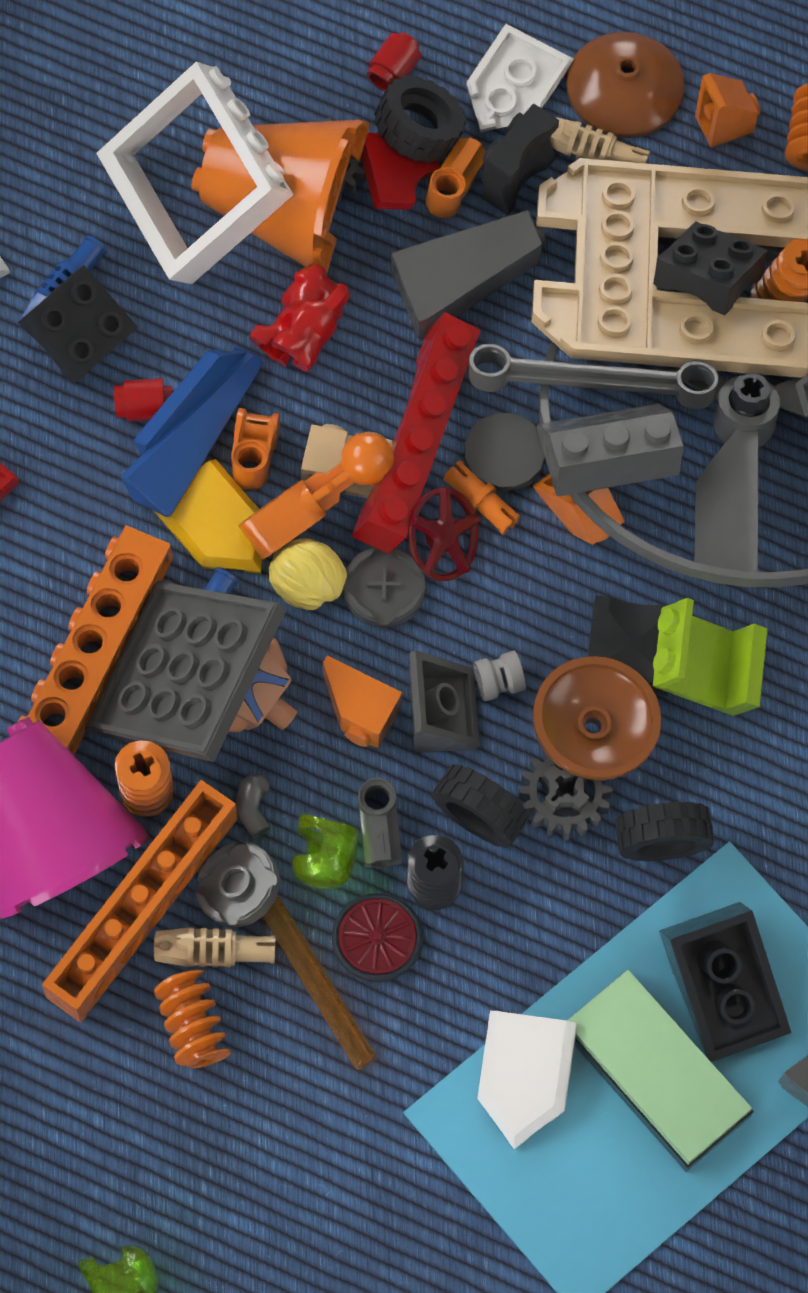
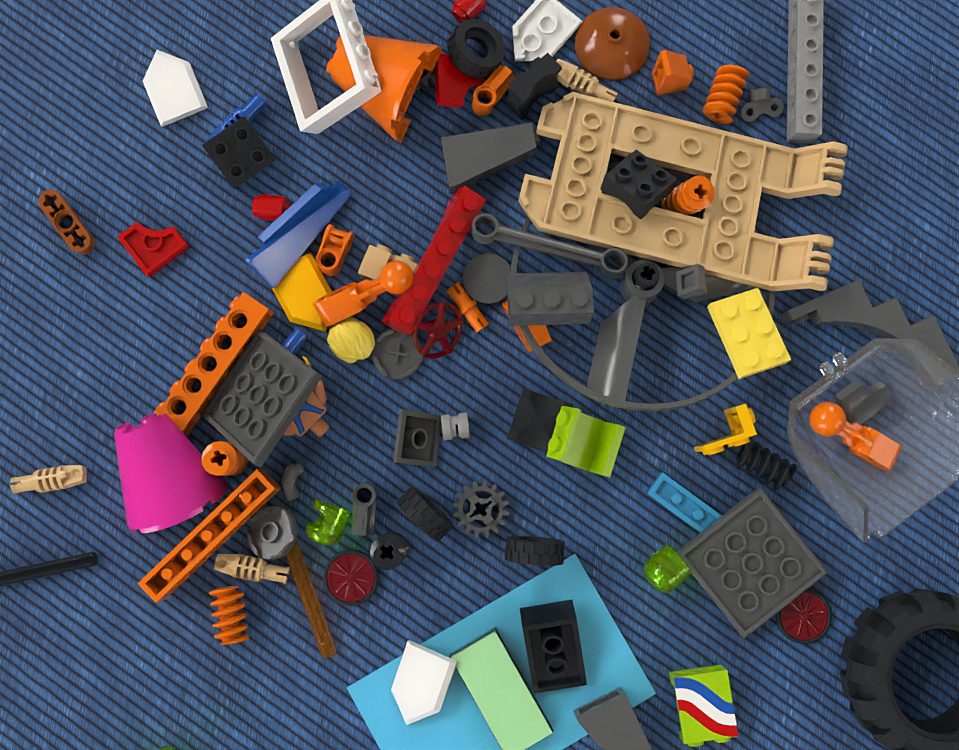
camera: 15 degrees right, 15 degrees up
(306, 321) = (379, 175): red animal -> none
(361, 703) = (367, 430): orange slope -> none
(601, 694) = (525, 477): dark orange dish -> none

